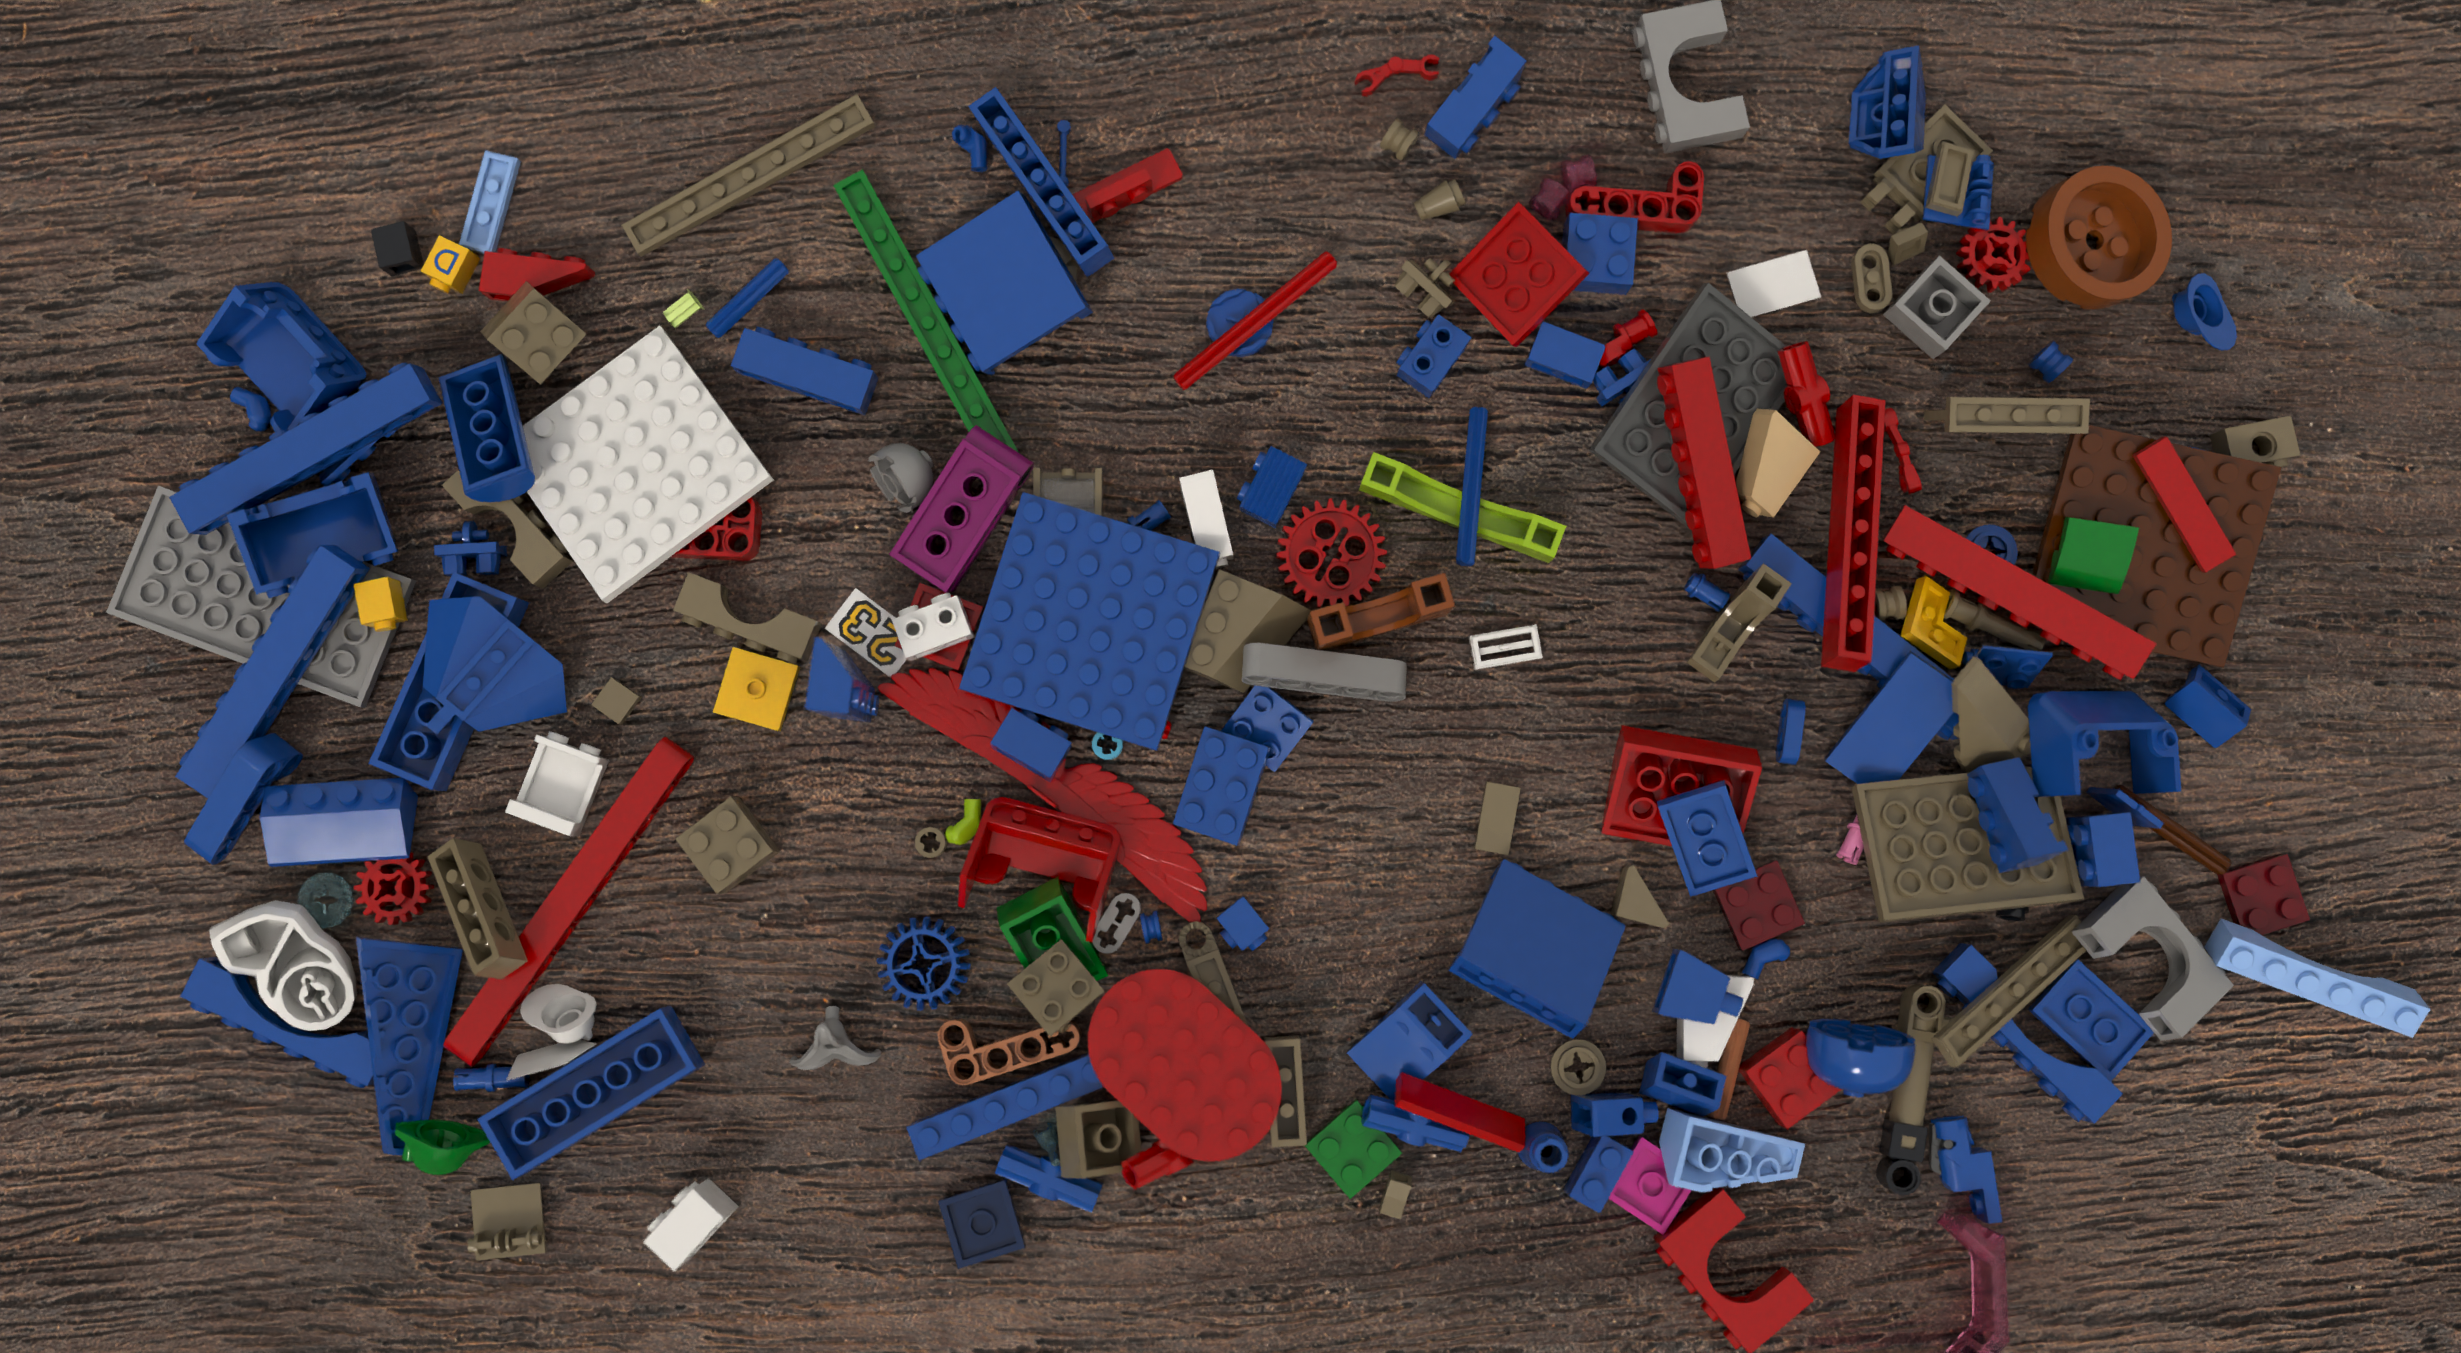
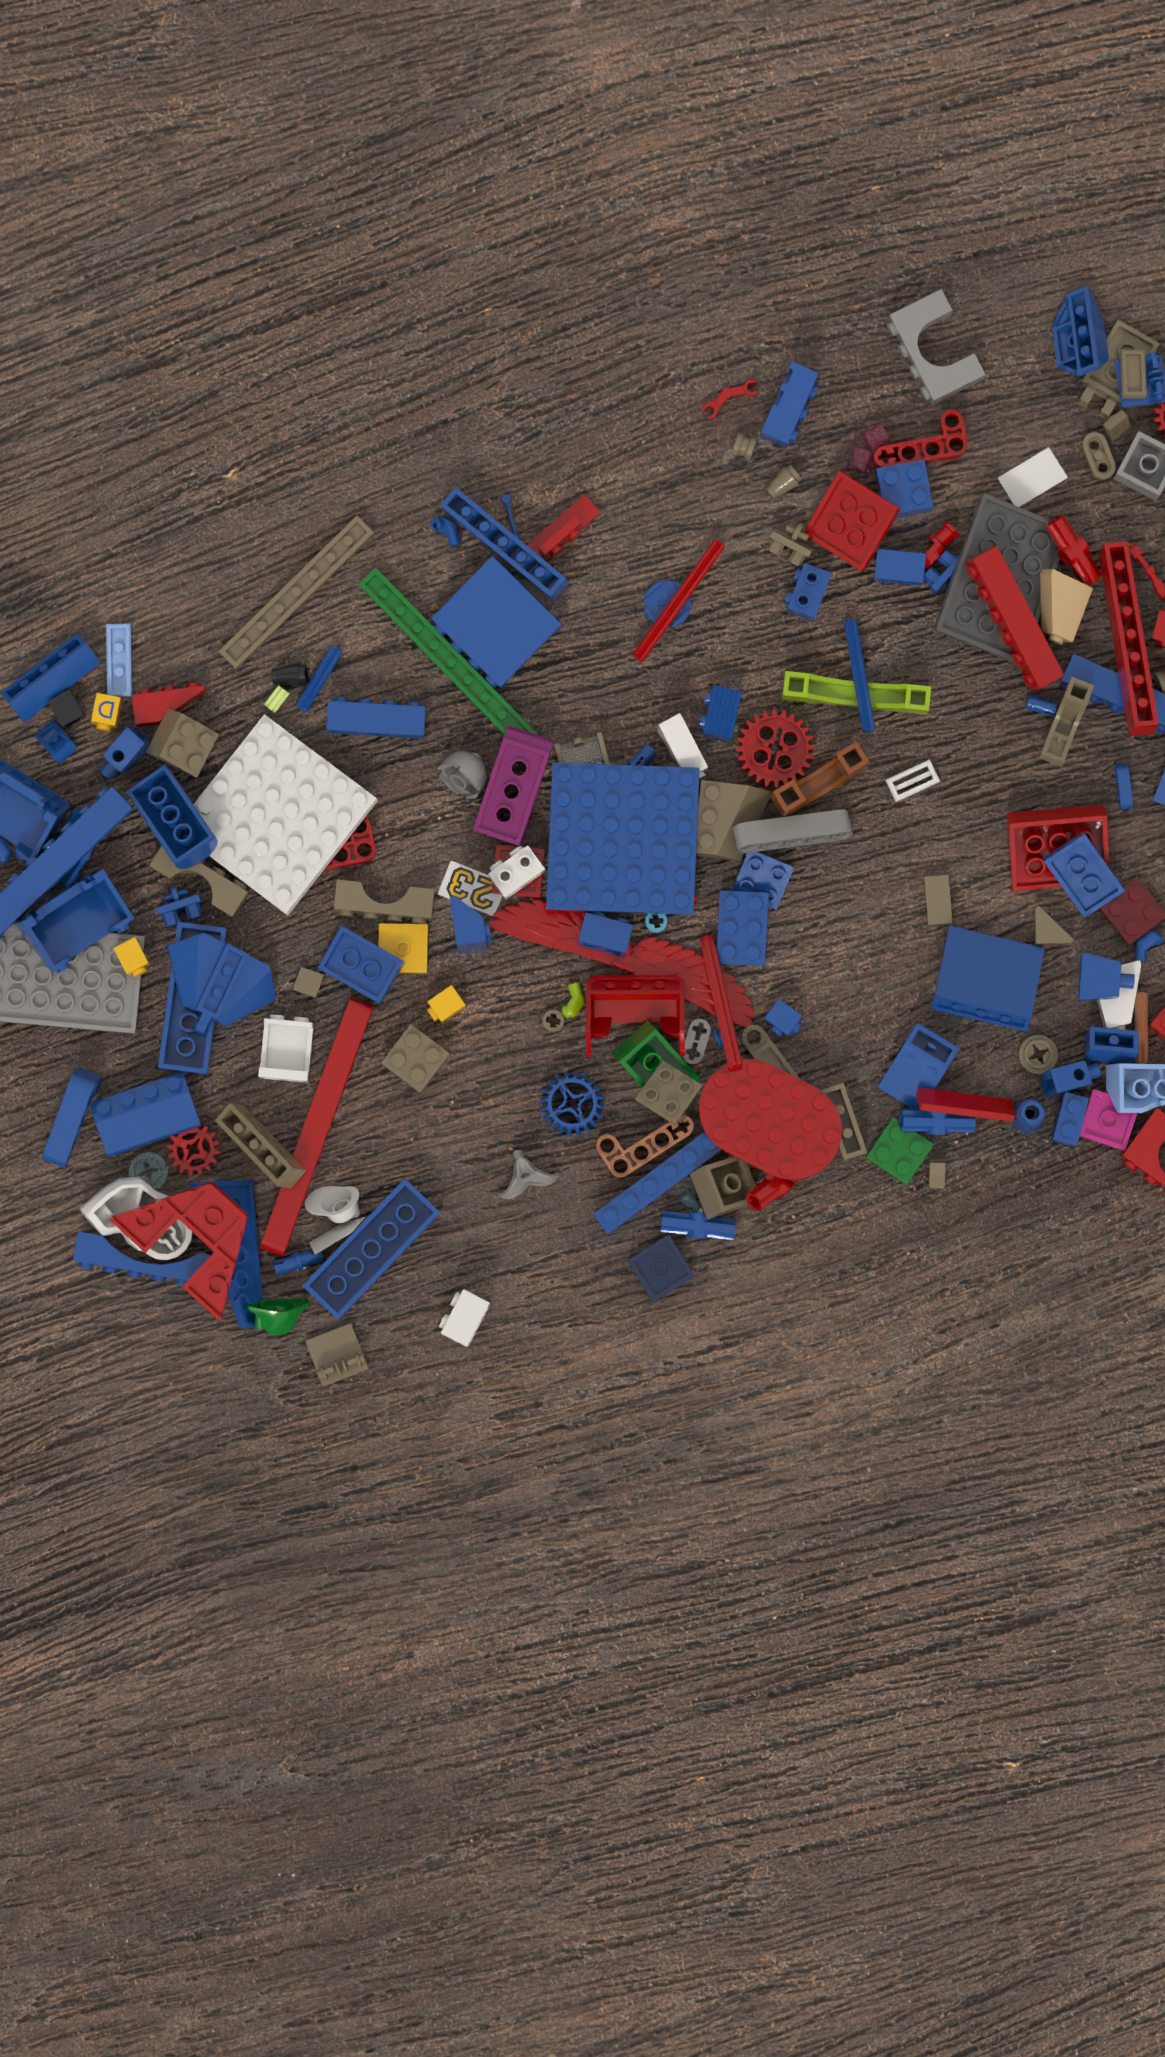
camera: 15 degrees left, 0 degrees up
(275, 665) = (72, 1023): blue brick -> none
(369, 997) = (212, 1219): none -> red wing
(372, 291) = (56, 742): none -> blue slope
(386, 199) = (50, 677): none -> blue brick
(455, 323) = (132, 744): none -> blue torso
(690, 696) = (361, 964): none -> blue plate
(711, 282) = (293, 674): none -> black cone
(790, 781) = (445, 1005): none -> yellow brick
(1162, 882) = (721, 1002): none -> red axle

